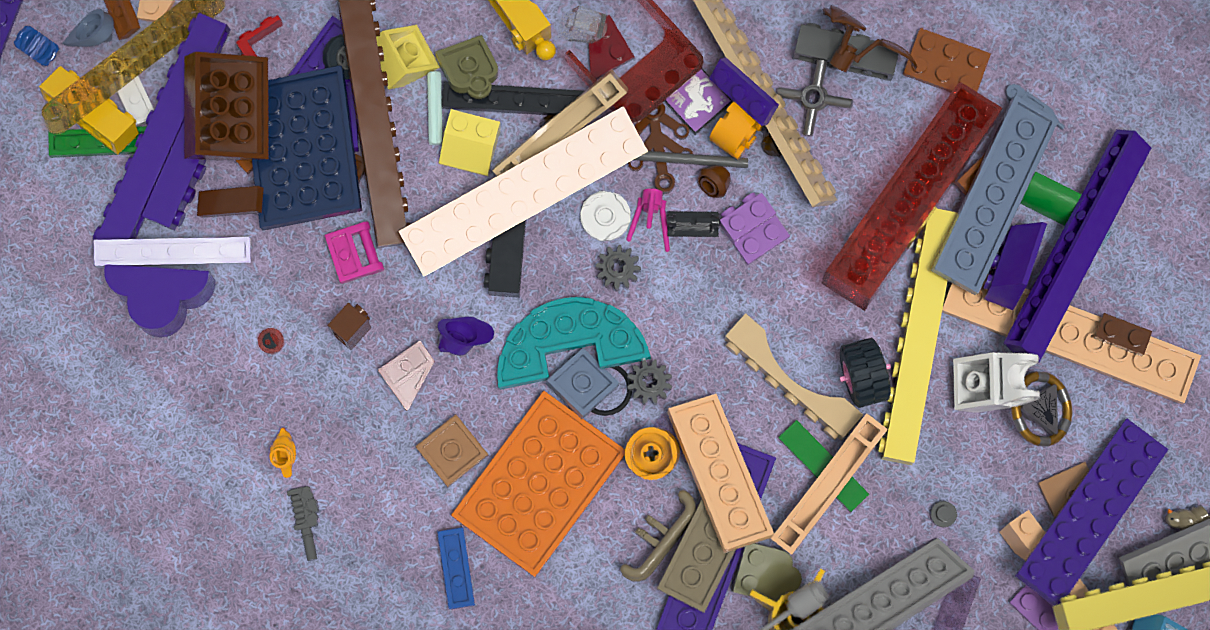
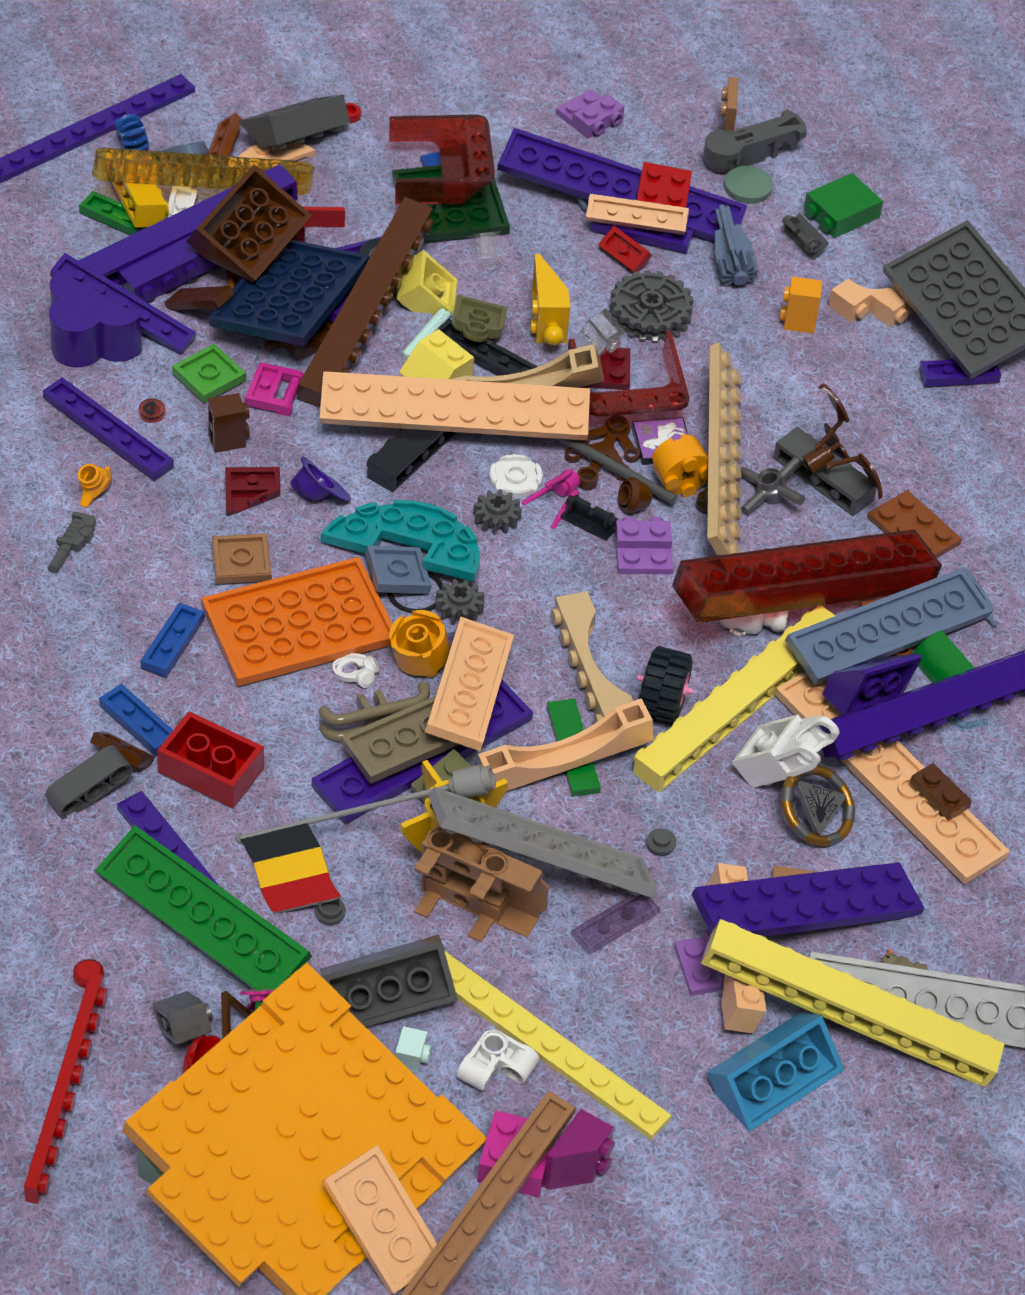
camera: 30 degrees right, 30 degrees down
(251, 386) = (108, 428): none -> dark purple plate
(289, 271) = (209, 373): none -> bright green plate
(624, 507) = (364, 677): none -> white piece
(744, 91) = (706, 430): dark purple plate -> none

